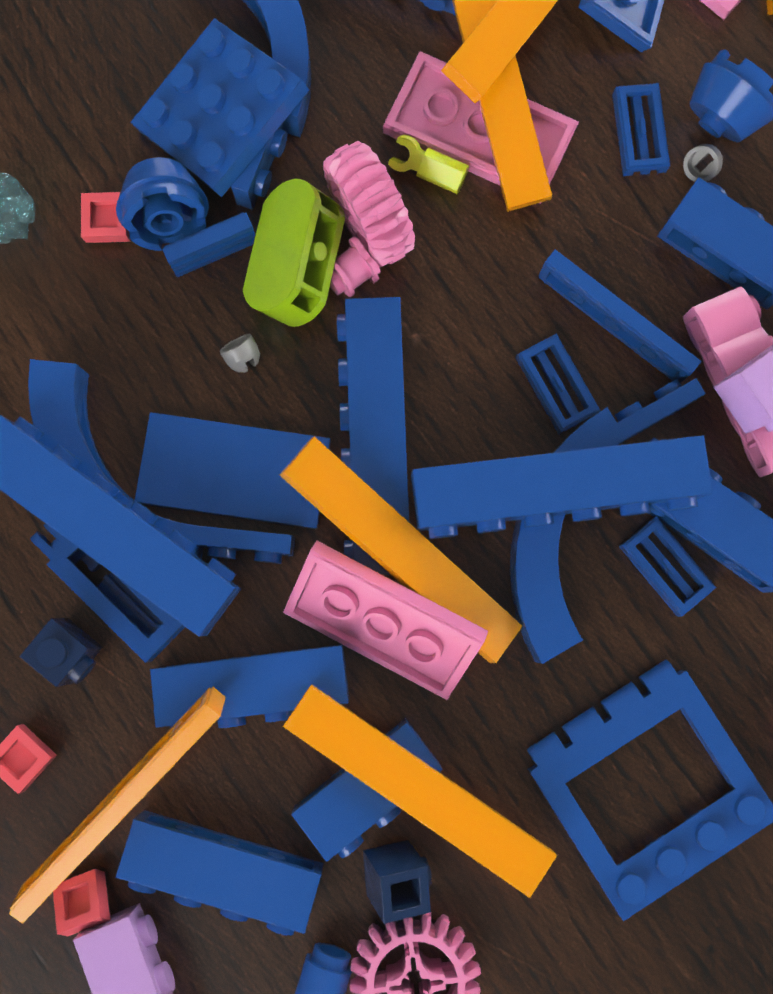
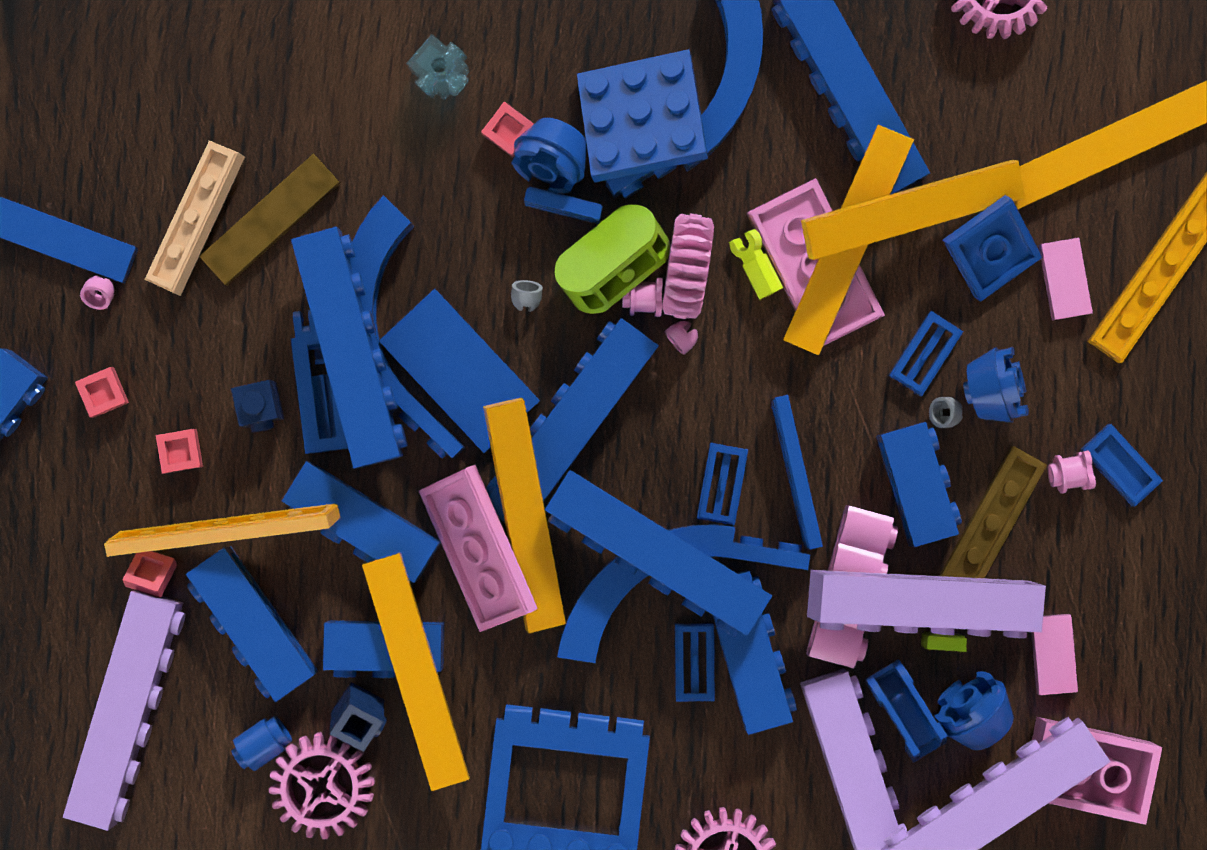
camera: 40 degrees right, 5 degrees up
(413, 281) = (680, 338): none -> bright pink hinge

